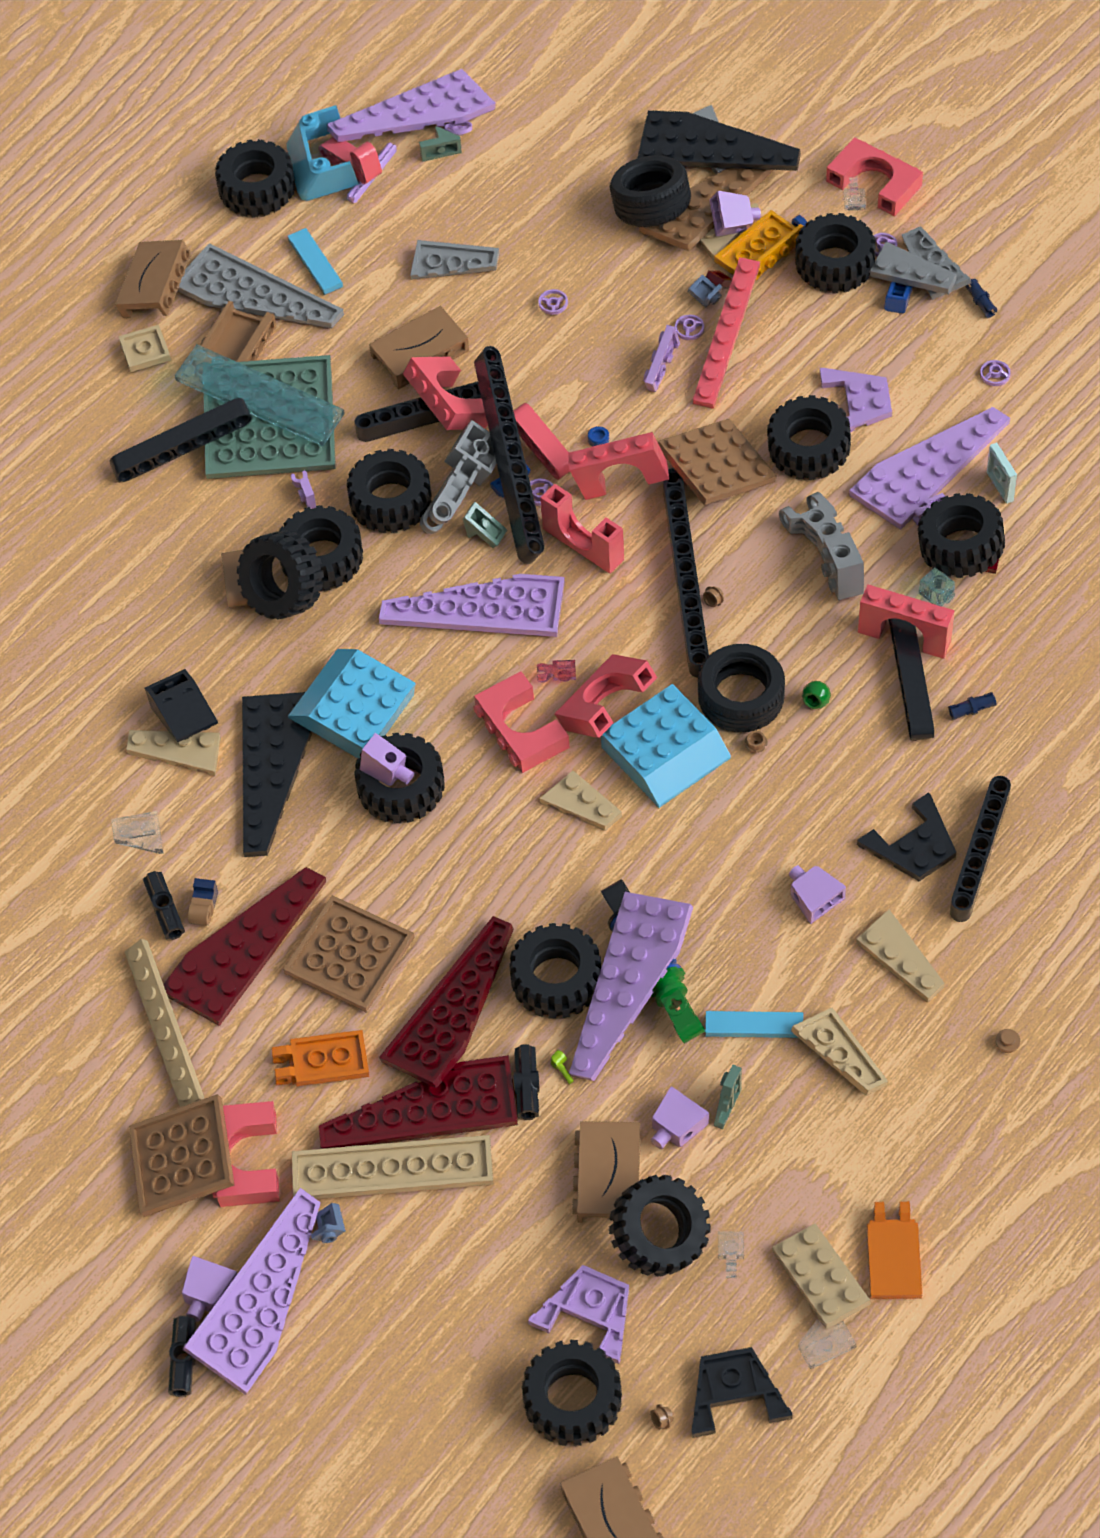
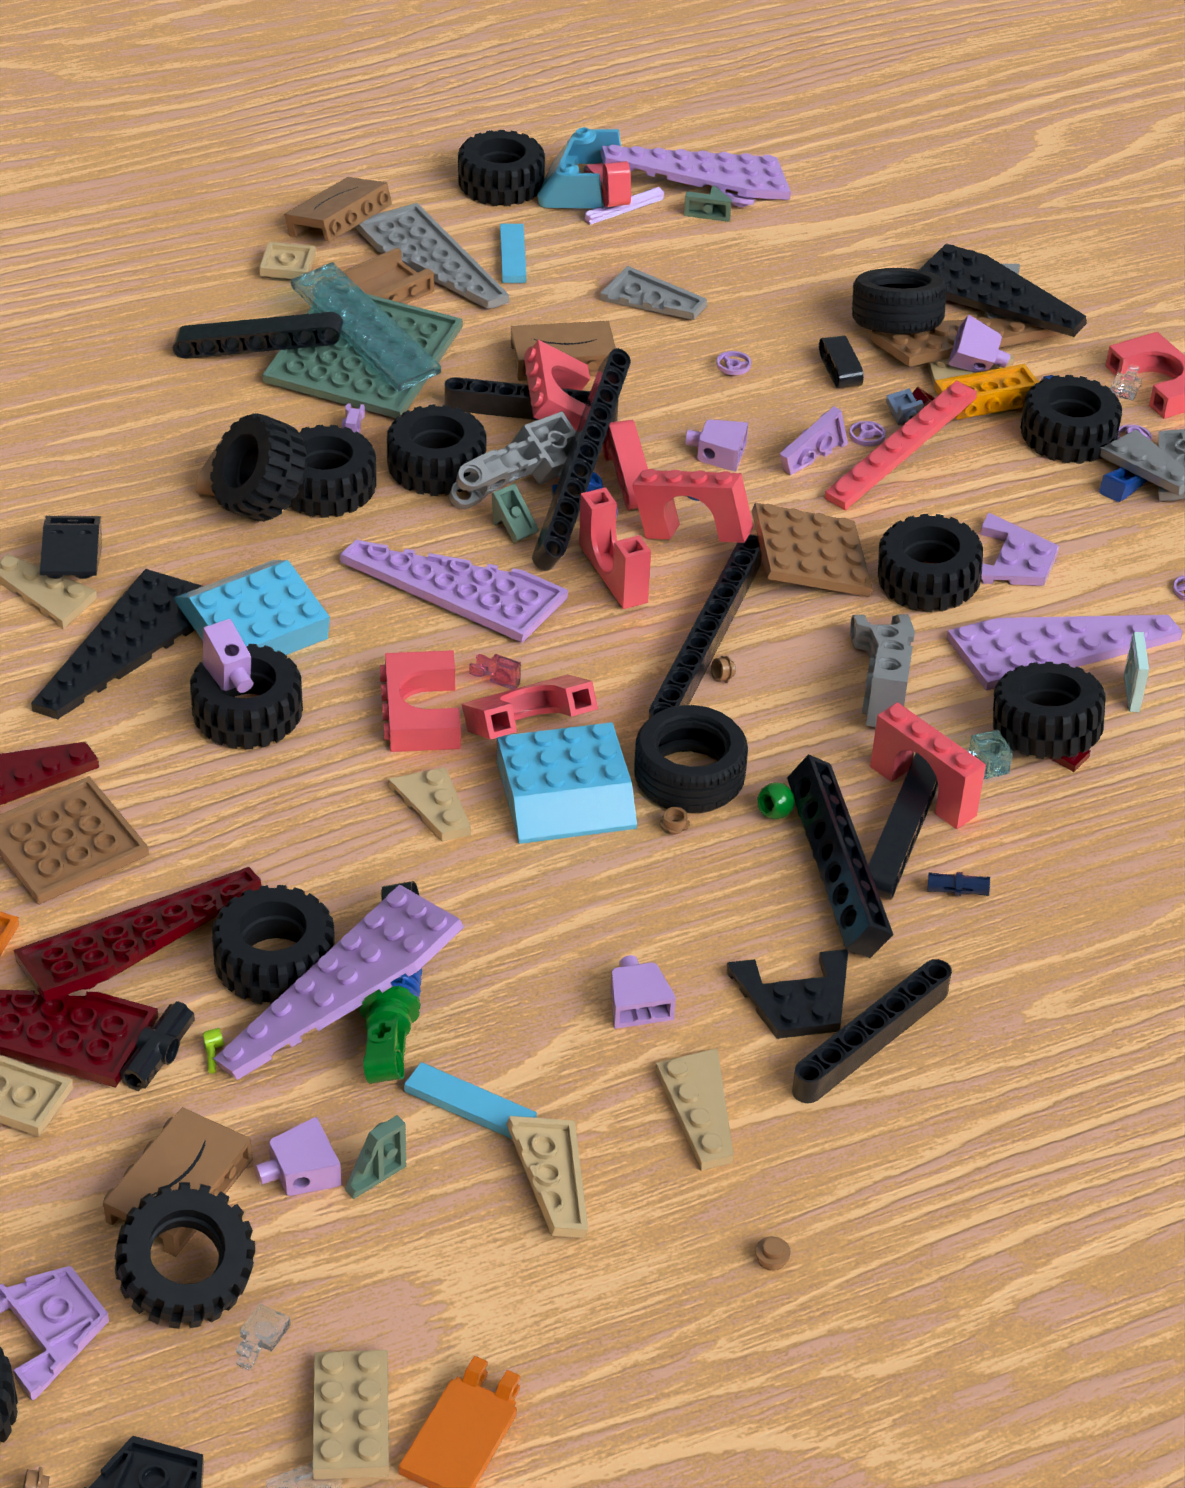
camera: 20 degrees right, 15 degrees down
(591, 388) = (720, 443): none -> lavender torso
(633, 266) = (841, 361): none -> black beam
(885, 721) = (839, 857): none -> black brick

